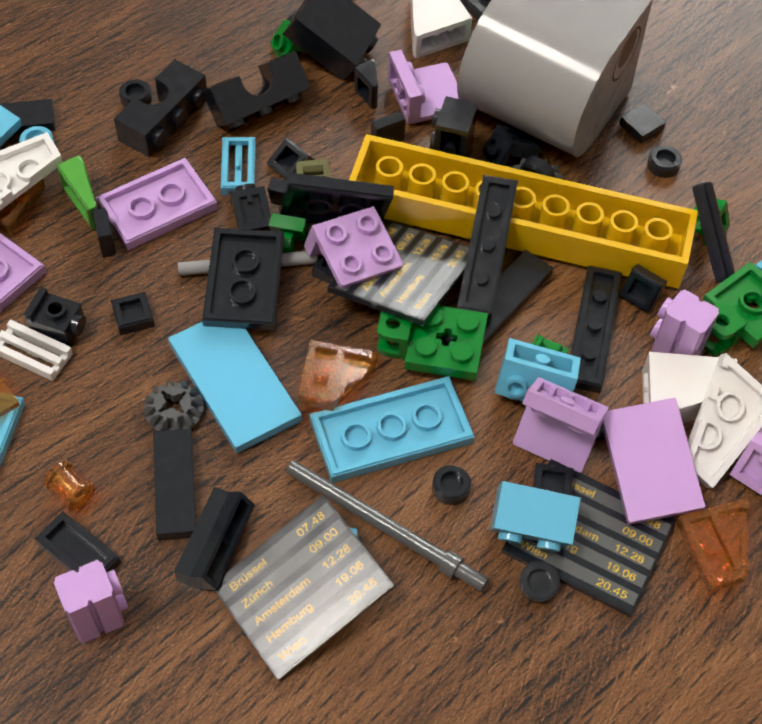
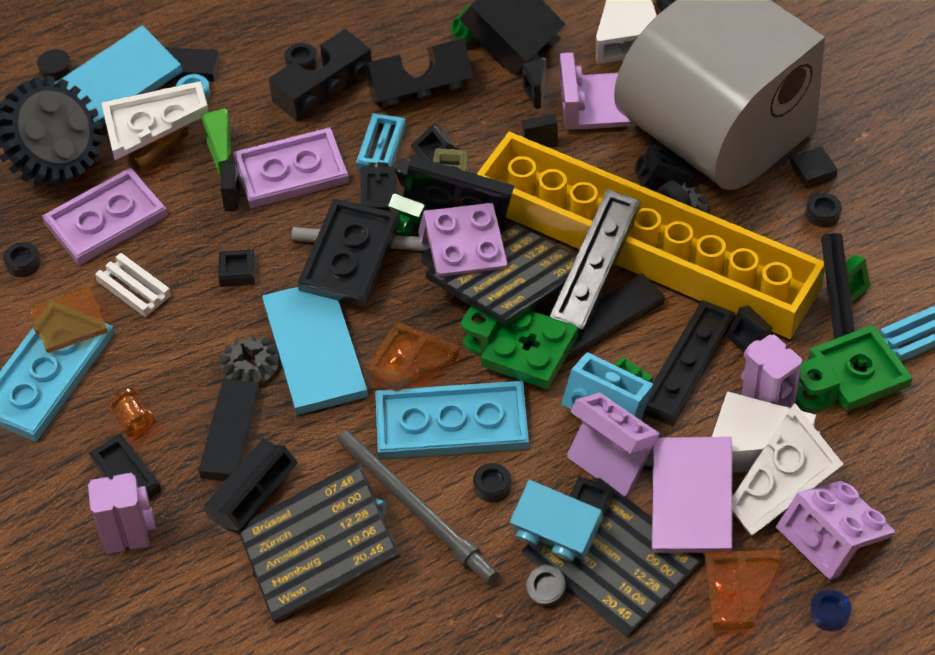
camera: 20 degrees right, 5 degrees down
(55, 317) = (162, 257): black brick -> none
(454, 127) = (603, 140): black brick -> none

